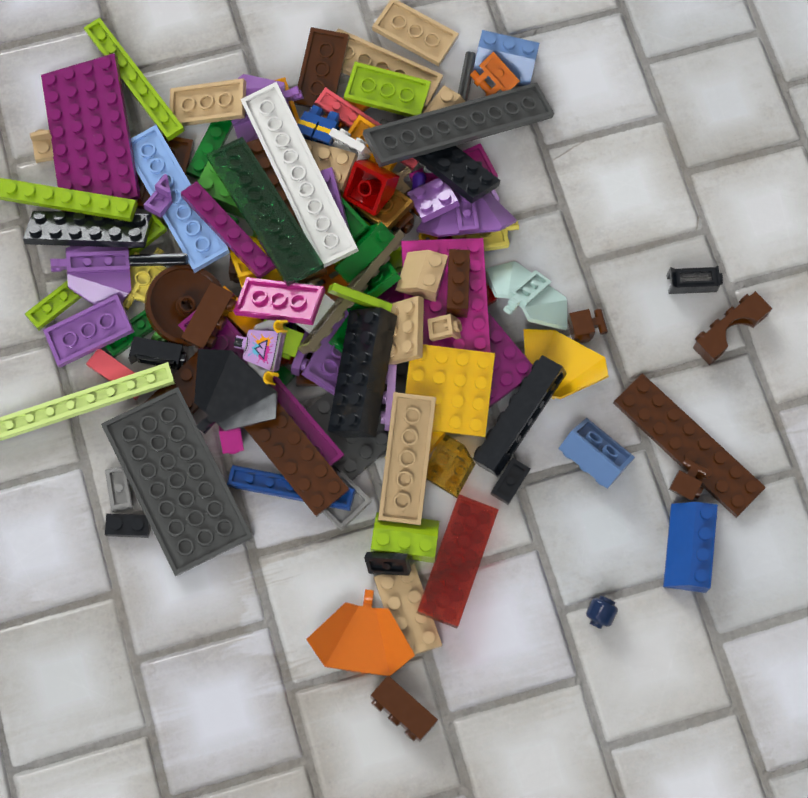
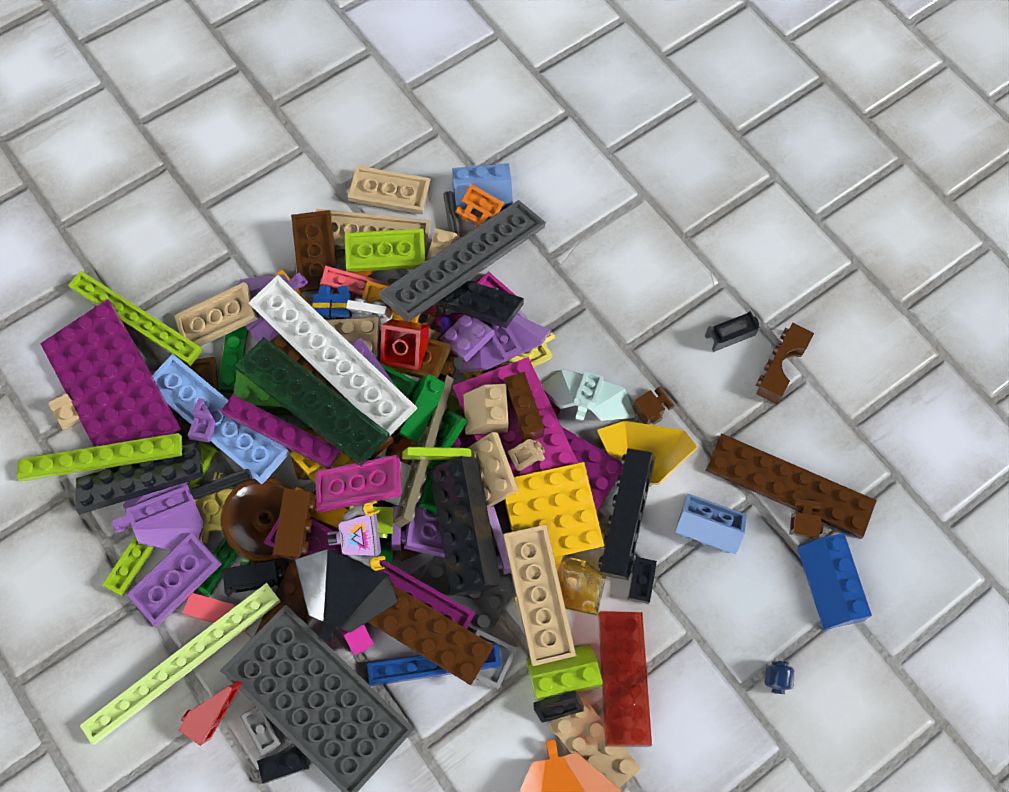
camera: 20 degrees left, 5 degrees down
(74, 460) = (204, 719): none -> slope

